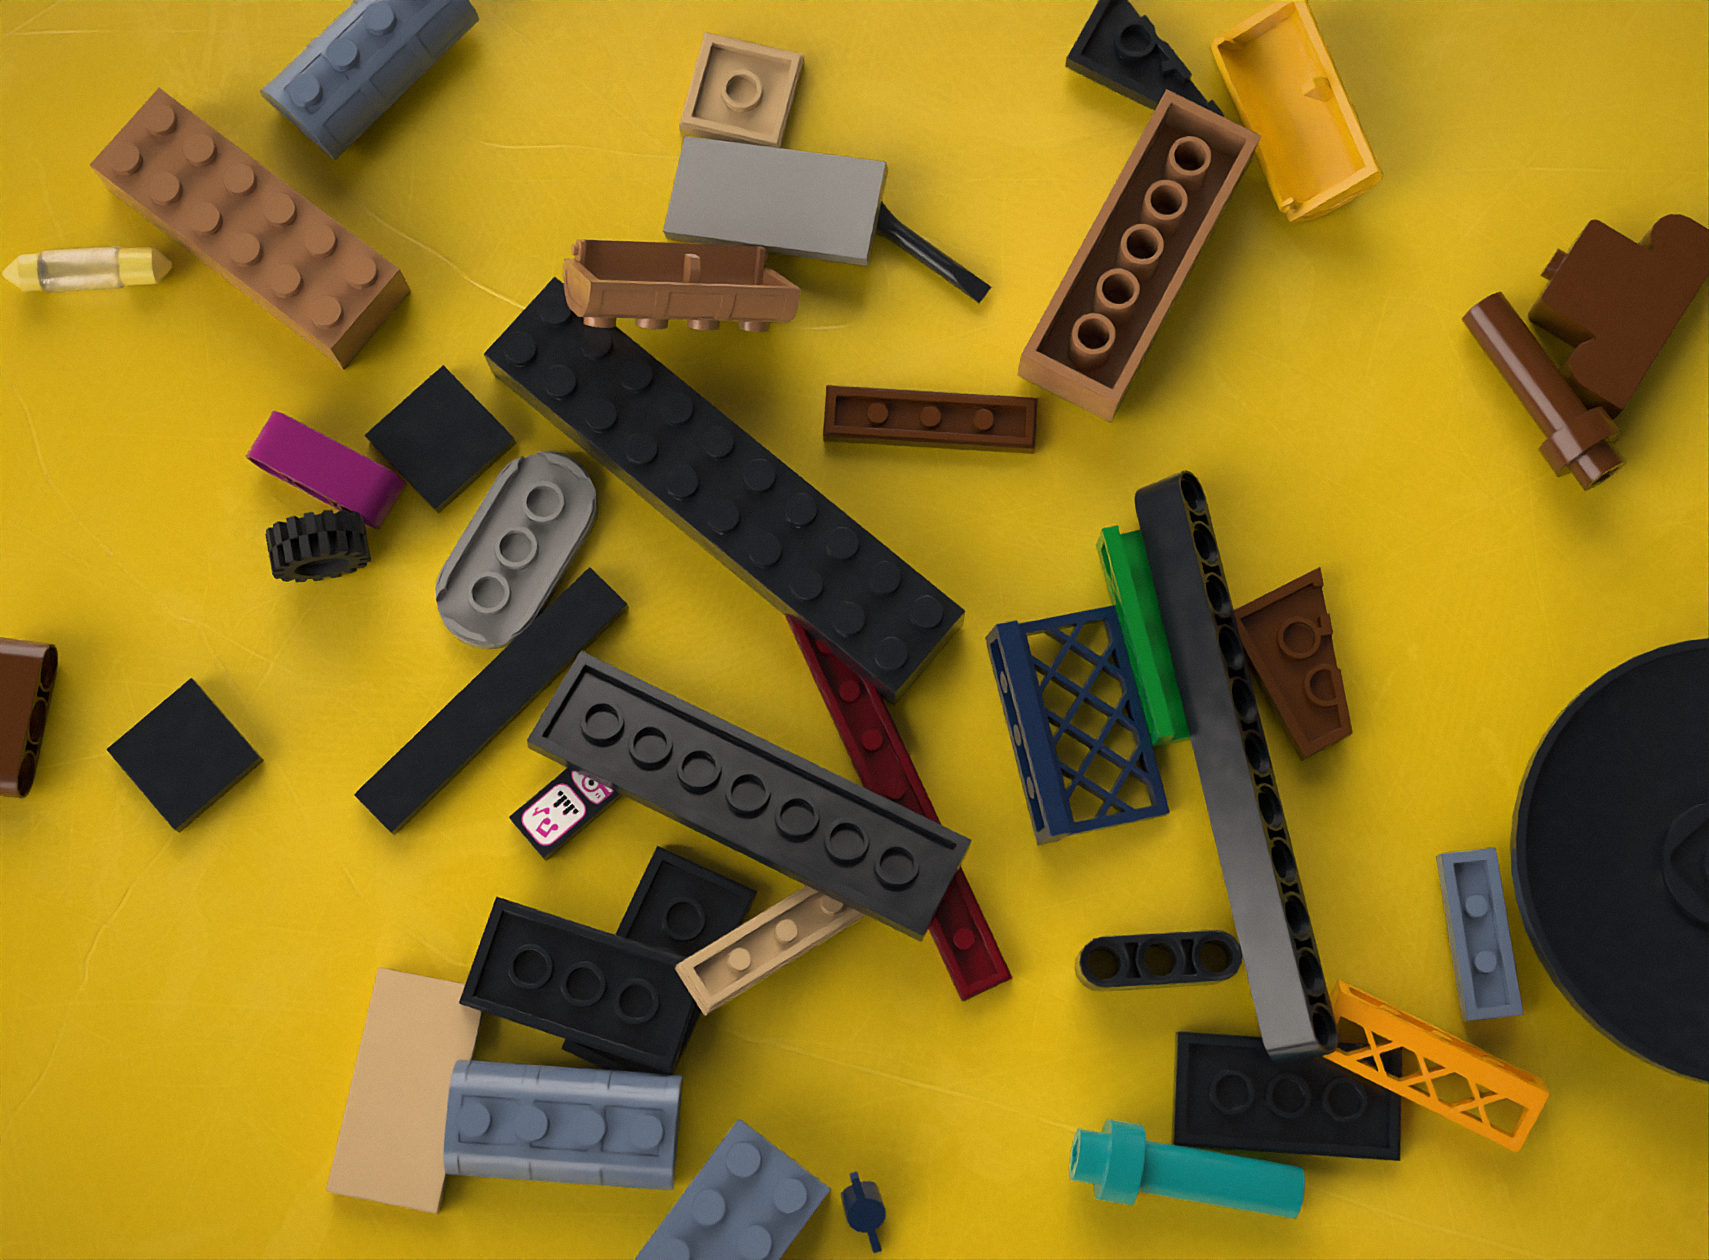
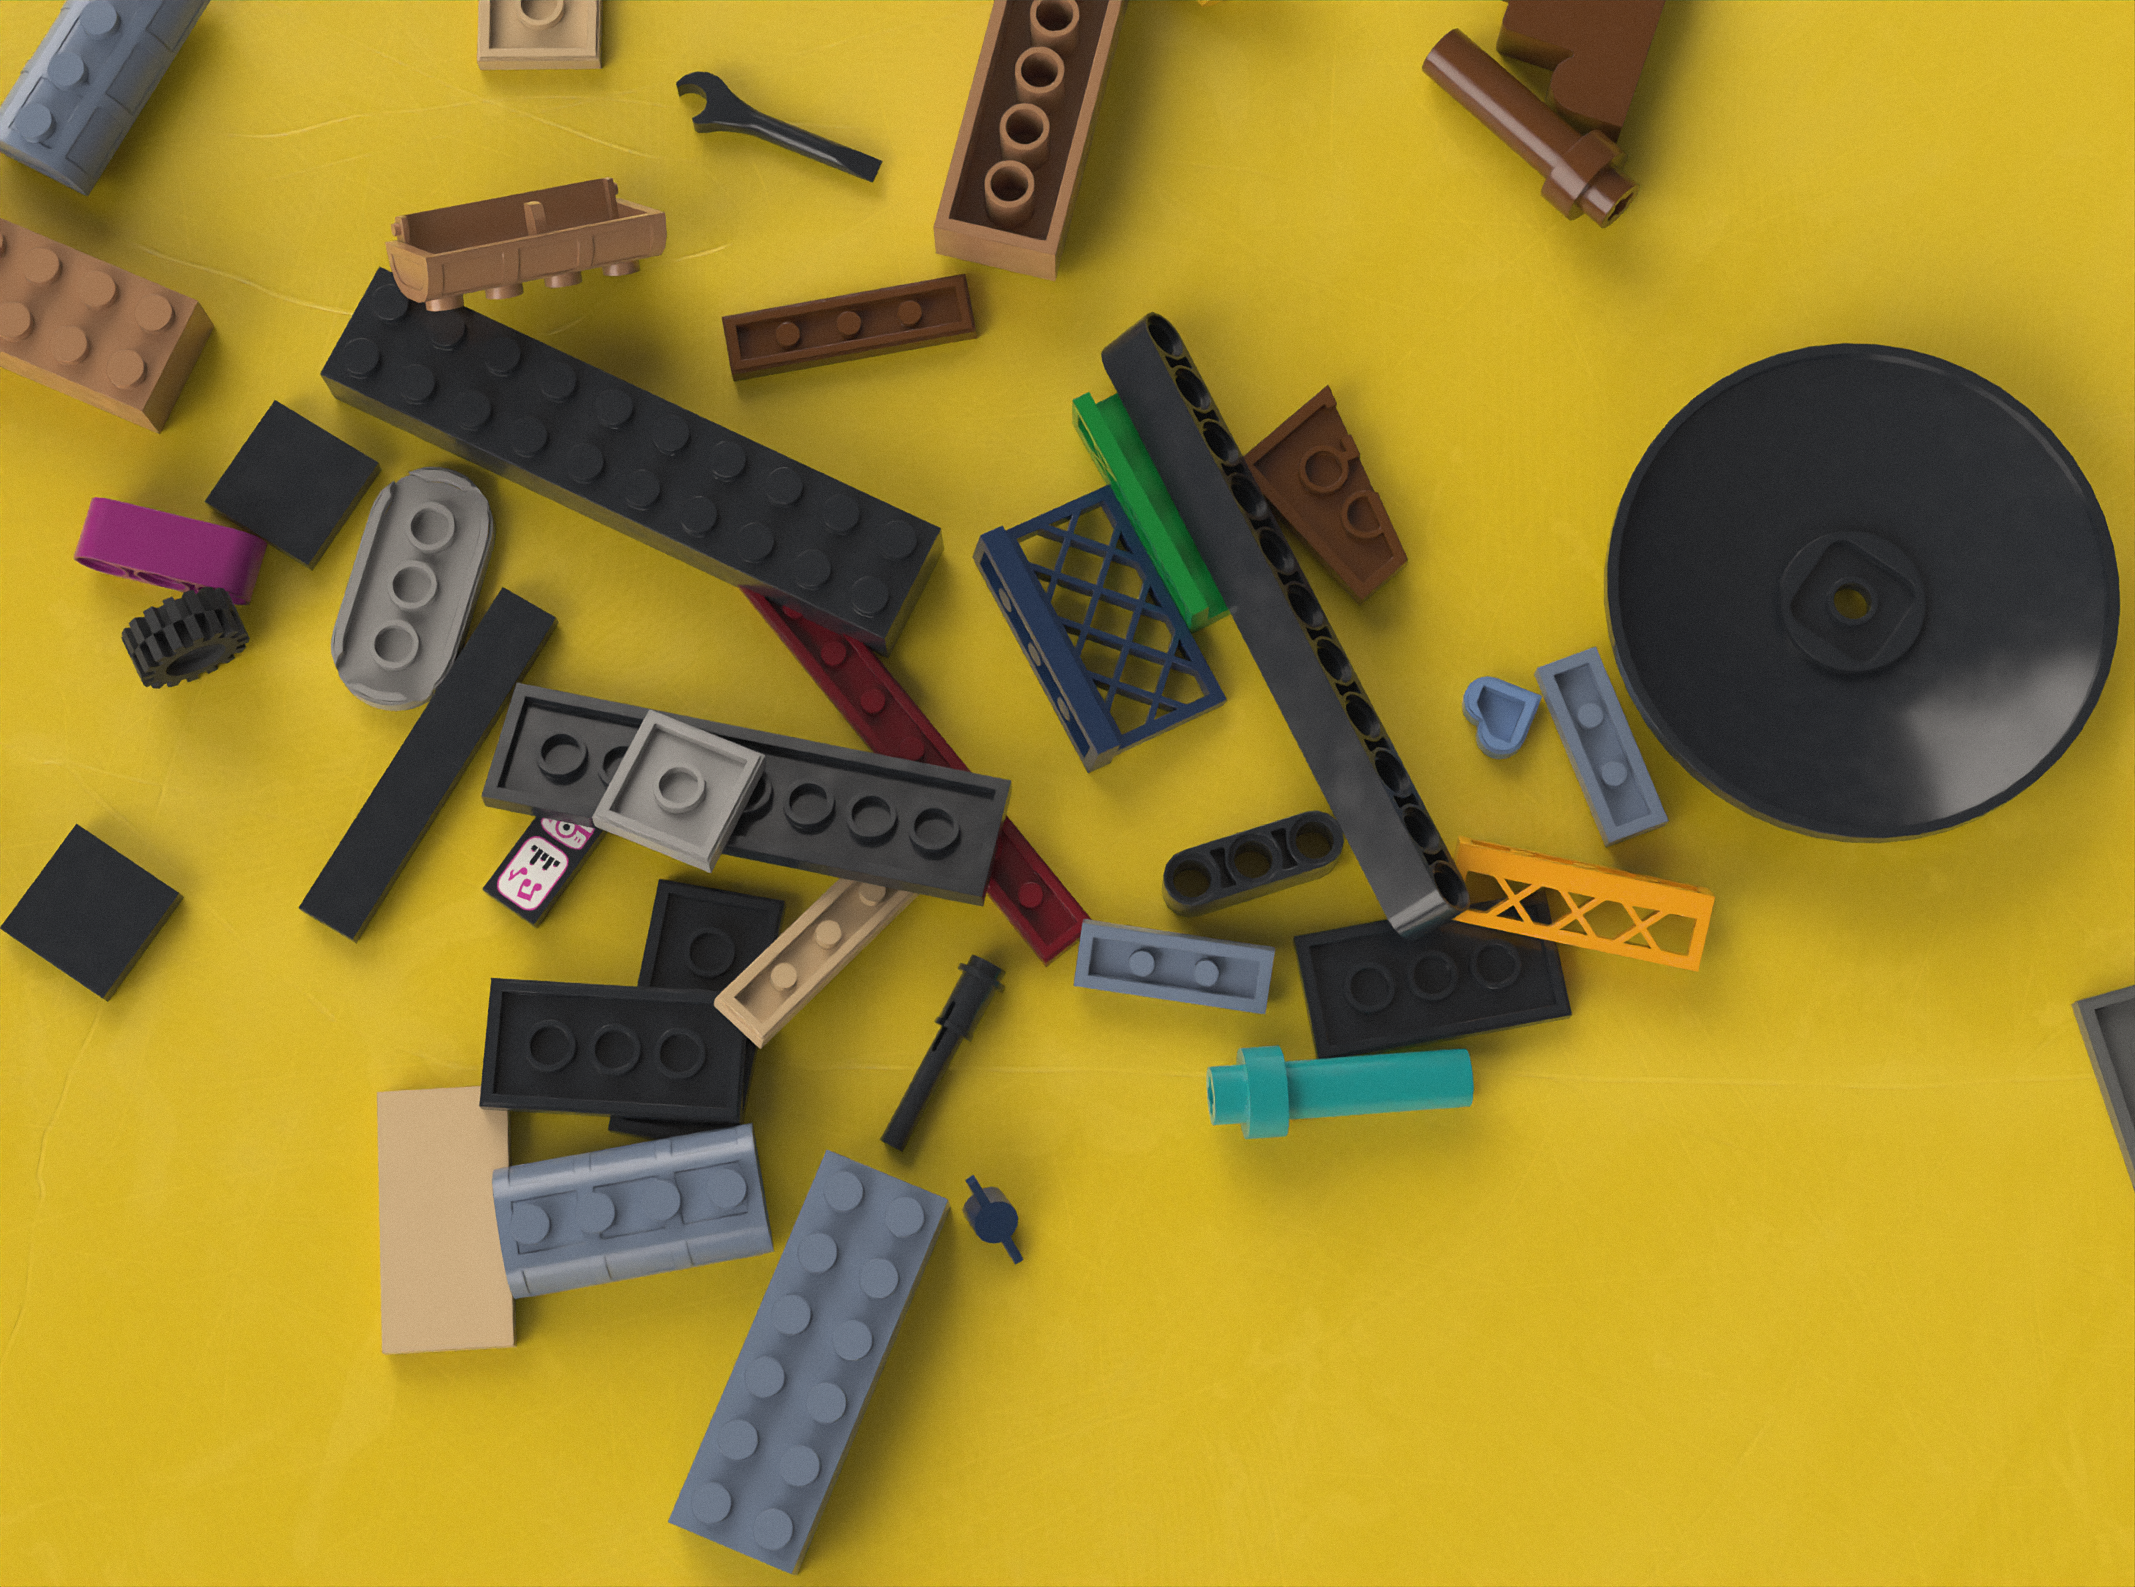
camera: 15 degrees left, 0 degrees up
(692, 779) = (680, 791): none -> light grey tile
(776, 200) = (611, 120): light grey tile -> none
(876, 1032) = (957, 1021): none -> black pin
(1071, 1032) = (1174, 966): none -> sand blue plate
(1399, 884) = (1500, 714): none -> medium blue tile

